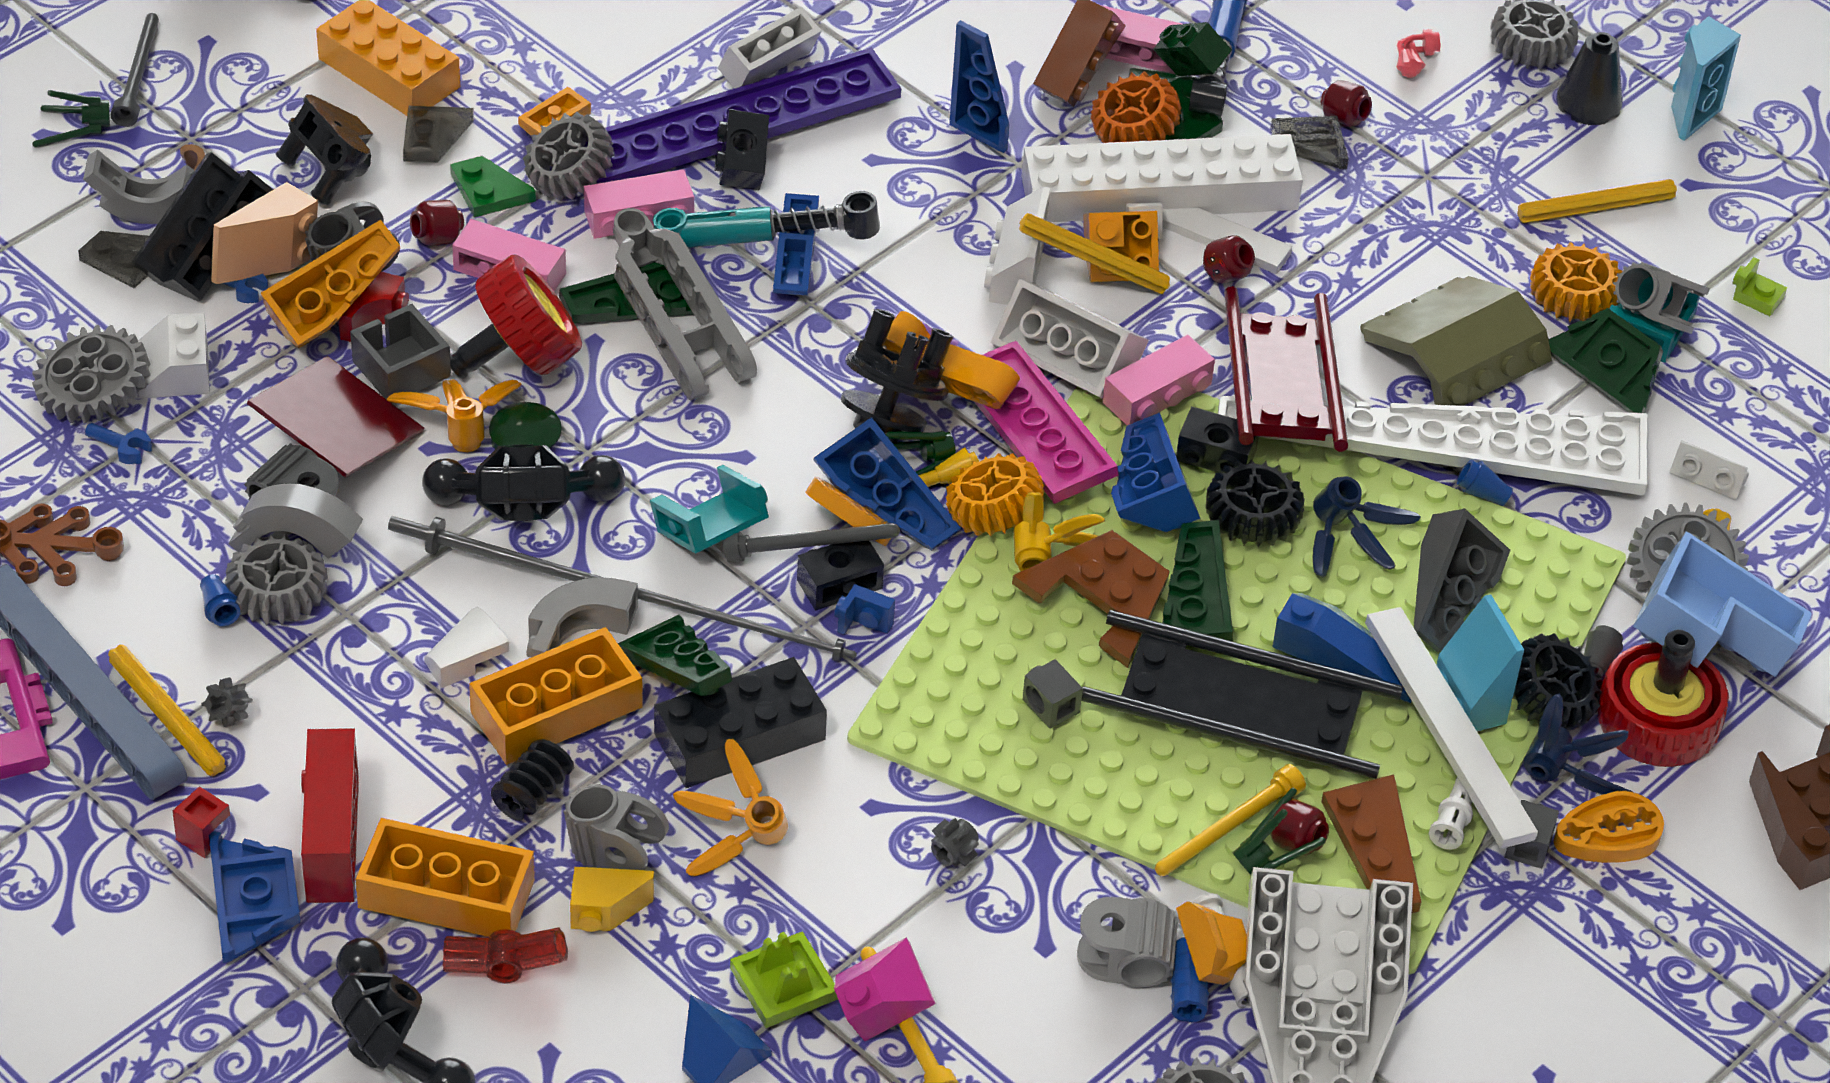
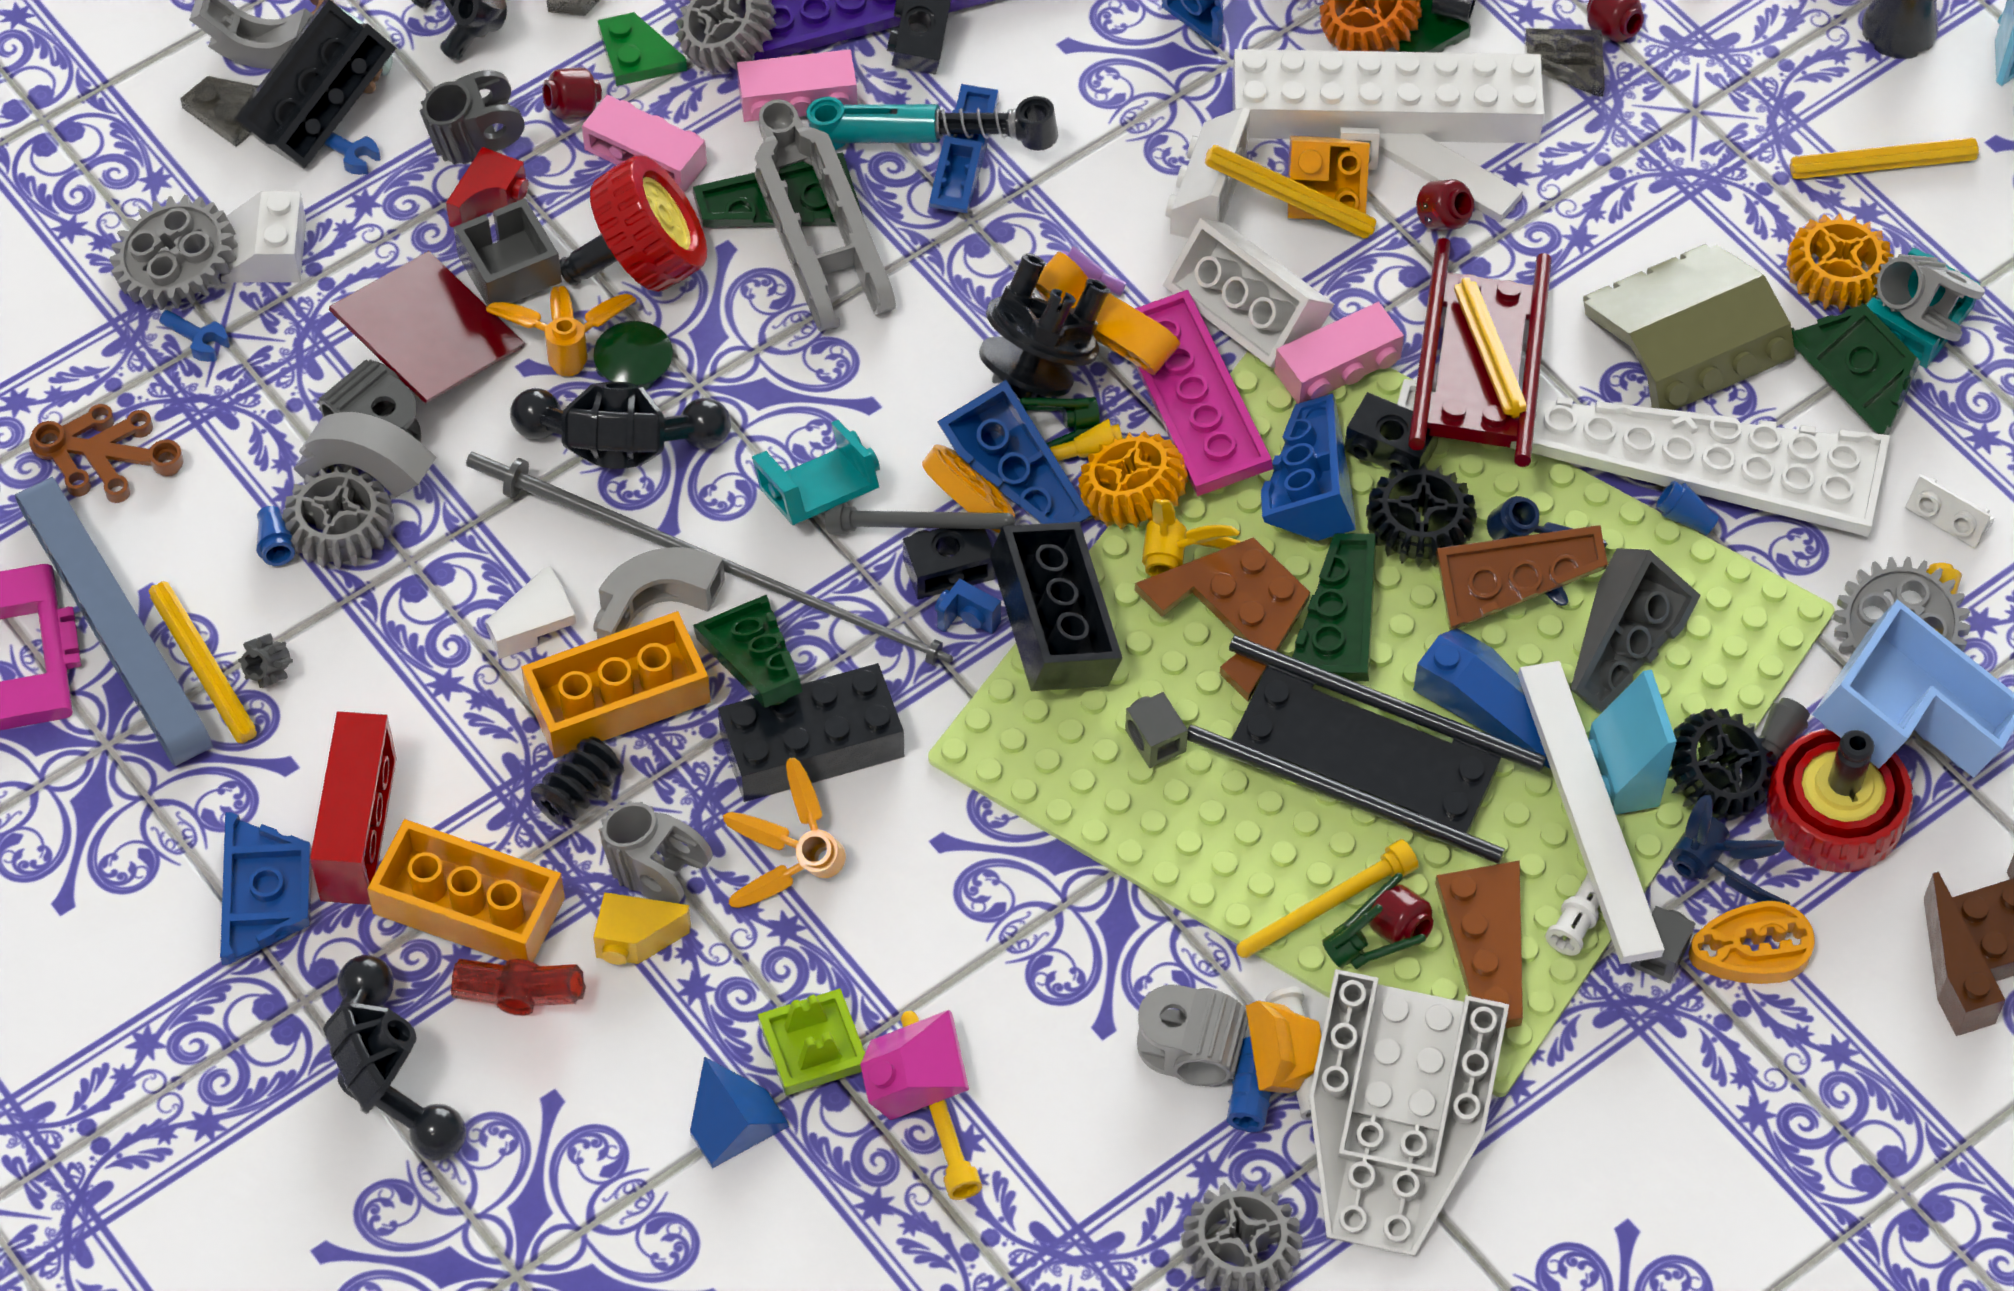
camera: 10 degrees right, 10 degrees up
(197, 819) = (215, 797): red panel -> none
(264, 236) = (376, 101): light nougat slope -> none
(322, 290) = (432, 173): light orange wedge -> none
(946, 597) = (1055, 606): none -> black brick
(954, 842) = (1022, 897): dark grey gear -> none
(1293, 363) = (1490, 348): none -> yellow axle
(1340, 541) = (1509, 571): none -> dark orange wing

